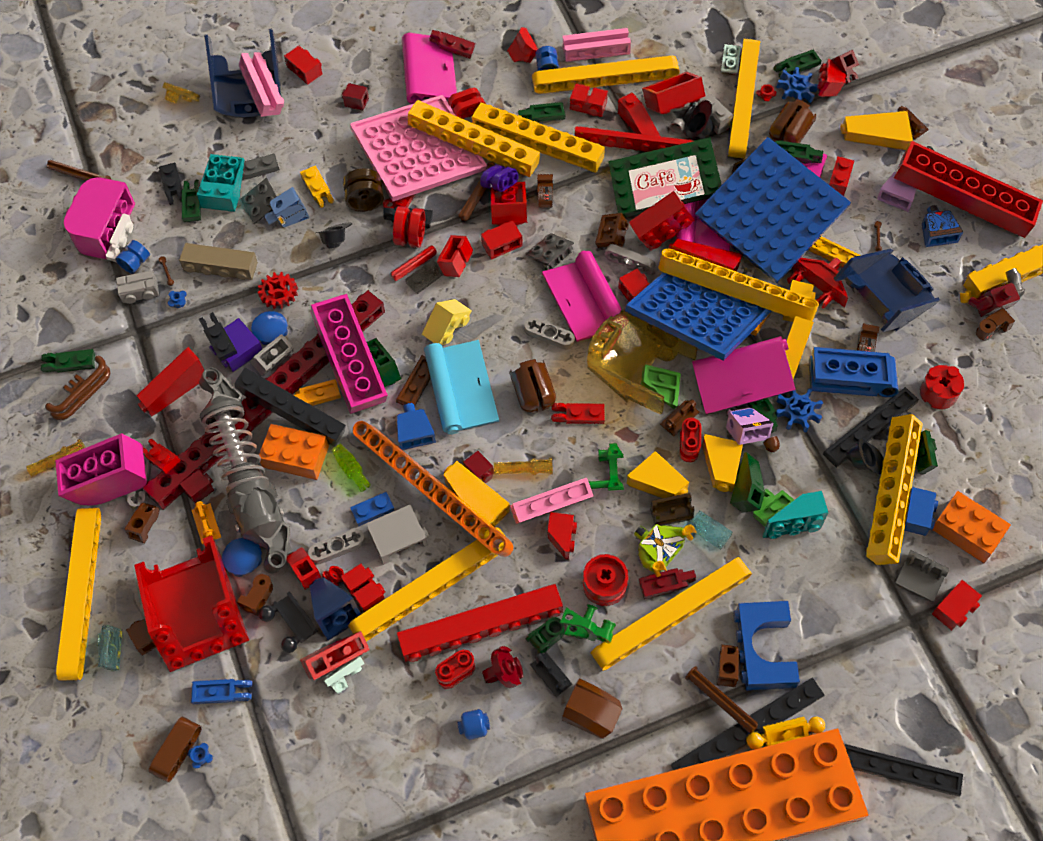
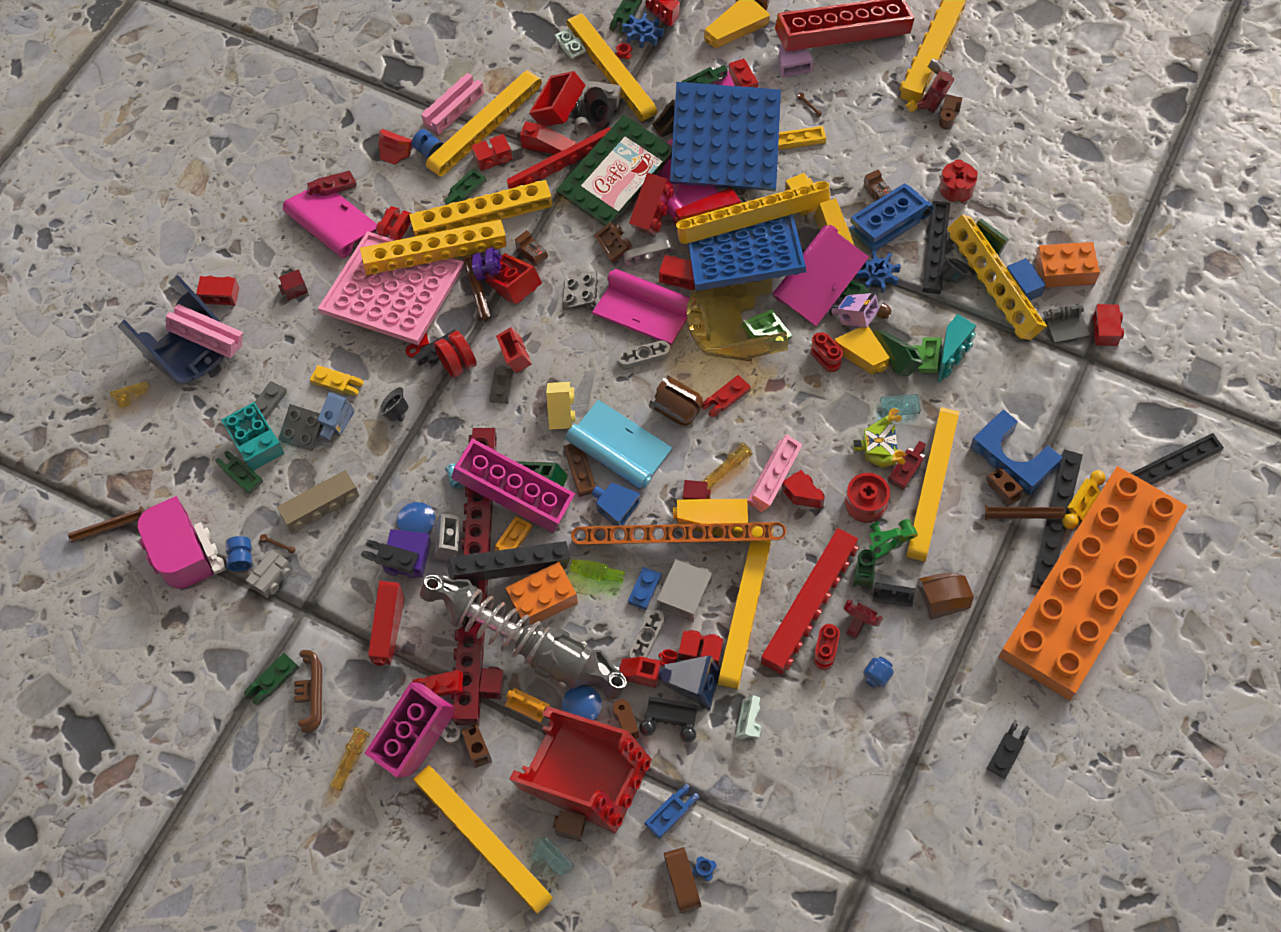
camera: 40 degrees left, 0 degrees up
(171, 181) = (202, 470): black hinge -> none
(177, 303) = (313, 563): blue plate -> none
(277, 290) = (385, 484): red gear -> none
(334, 655) = (731, 713): red slope -> none
(363, 190) = (385, 353): dark brown wheel -> none
(413, 263) = (482, 381): red axle -> none
(501, 239) = (535, 311): red brick -> none
(610, 455) = (783, 407): green piece -> none
(657, 478) = (832, 397): yellow slope -> none
(672, 509) = (862, 412): dark brown hinge -> none
(674, 421) = (801, 341): reddish brown hinge -> none
(792, 122) = (661, 59): reddish brown cylinder -> none
(821, 276) = (805, 162): red connector -> none
(889, 287) = (859, 136): dark blue windscreen -> none
(940, 227) = (847, 66): blue torso -> none

